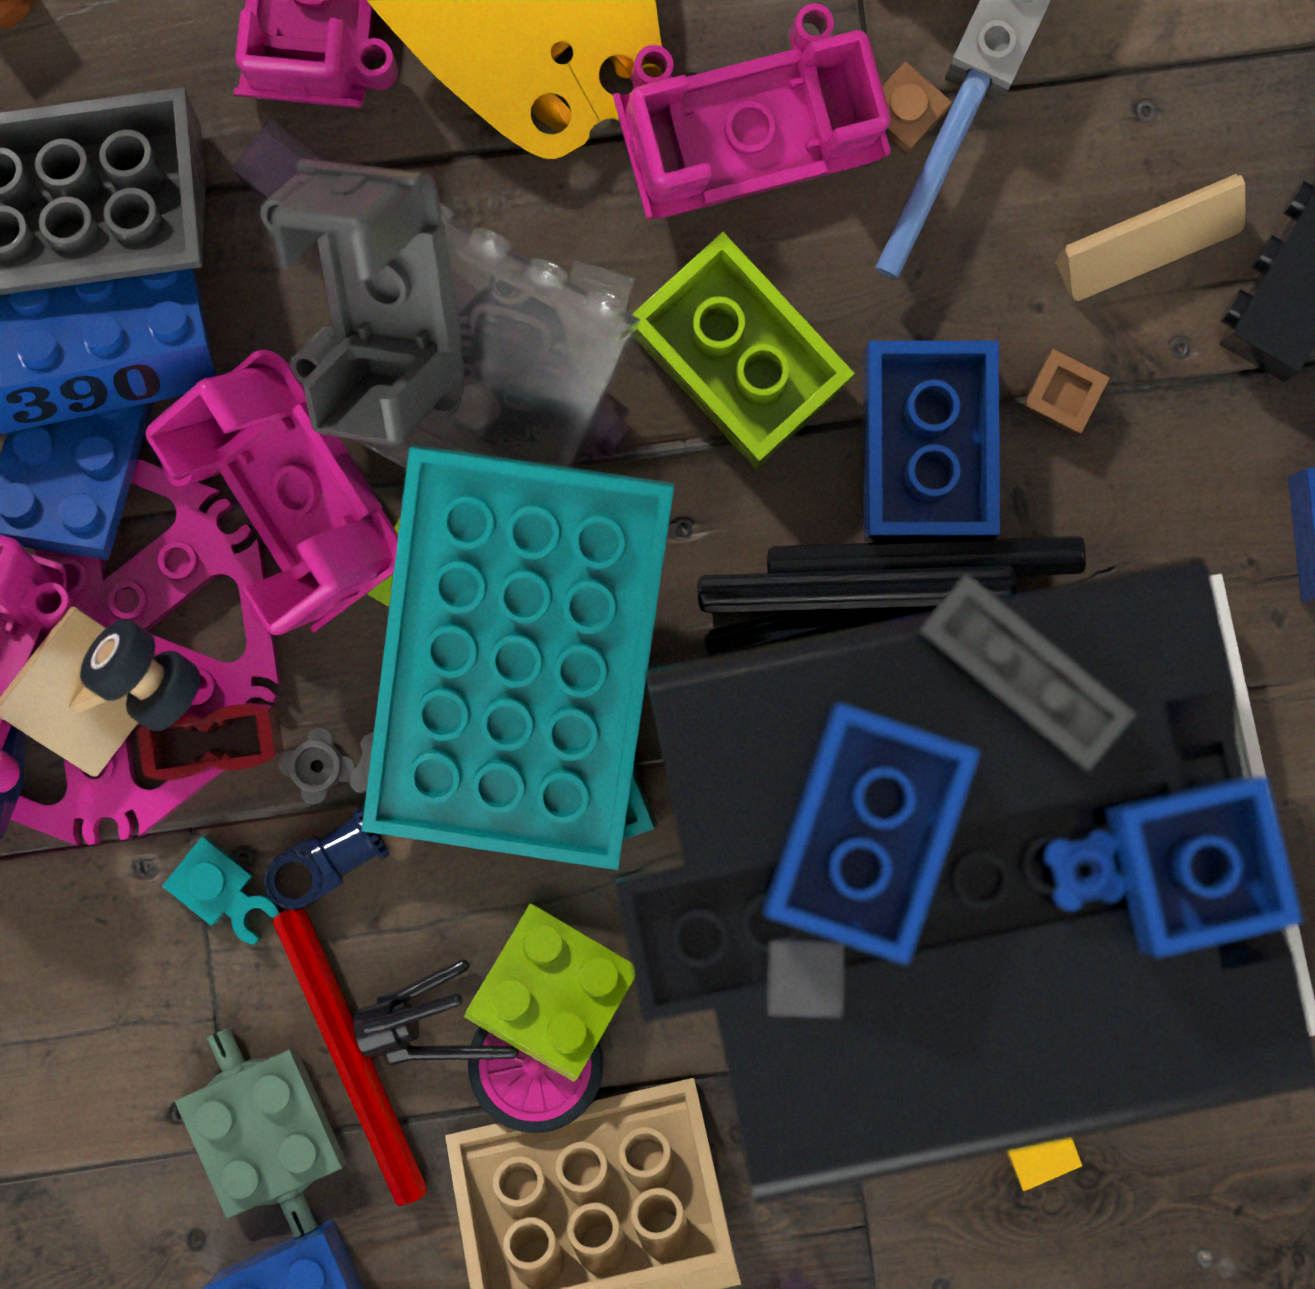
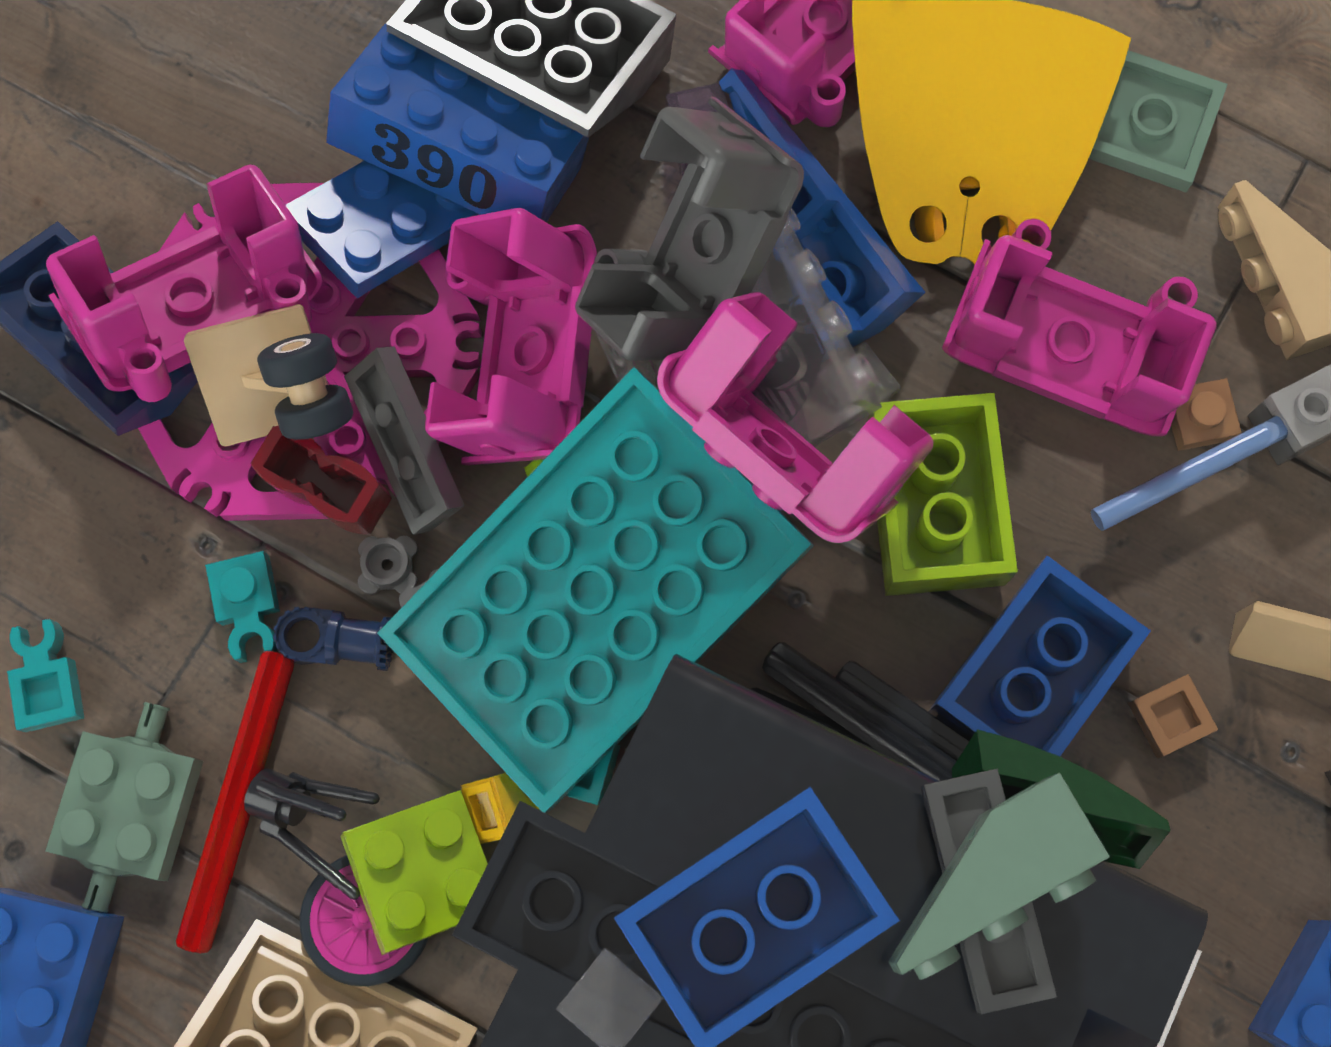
camera: 40 degrees right, 10 degrees down
(111, 1092) = (46, 687): none -> teal plate
(248, 652) = (400, 438): none -> dark grey plate
(518, 198) = (857, 263): none -> blue wedge
(572, 433) = (714, 390): none -> dark pink container
(574, 892) = (492, 804): none -> yellow slope
(1024, 542) = (1121, 821): none -> dark green slope
(1025, 645) = (1007, 860): none -> sand green slope

